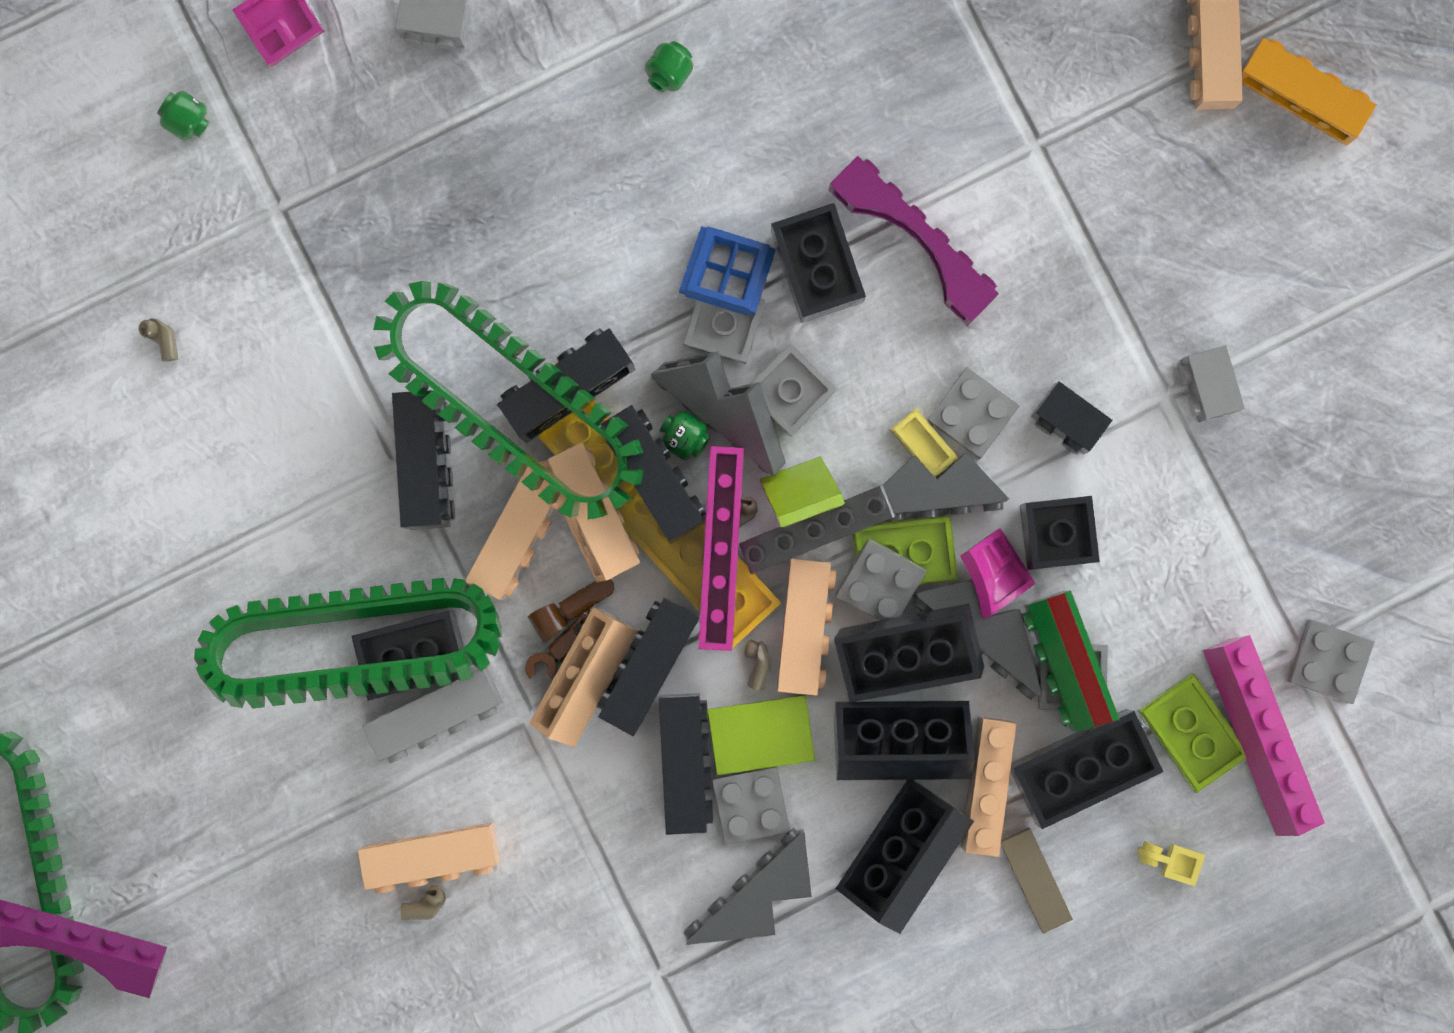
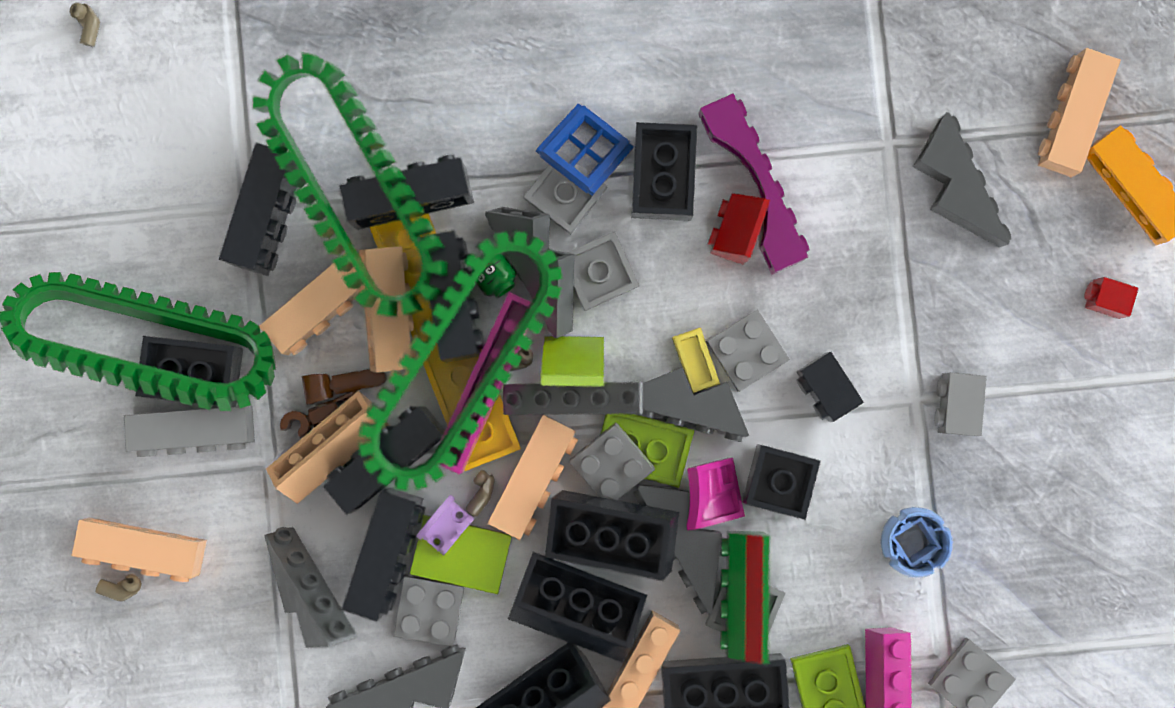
camera: 25 degrees right, 0 degrees up
(620, 832) = (306, 591): none -> dark grey slope
(687, 399) = (485, 387): none -> green piece
(735, 711) = (445, 525): none -> lavender piece
(916, 291) = (739, 227): none -> red slope
(1131, 169) = (963, 193): none -> dark grey slope
(1236, 557) = (930, 557): none -> light blue piece
(1321, 216) = (1110, 297): none -> red brick

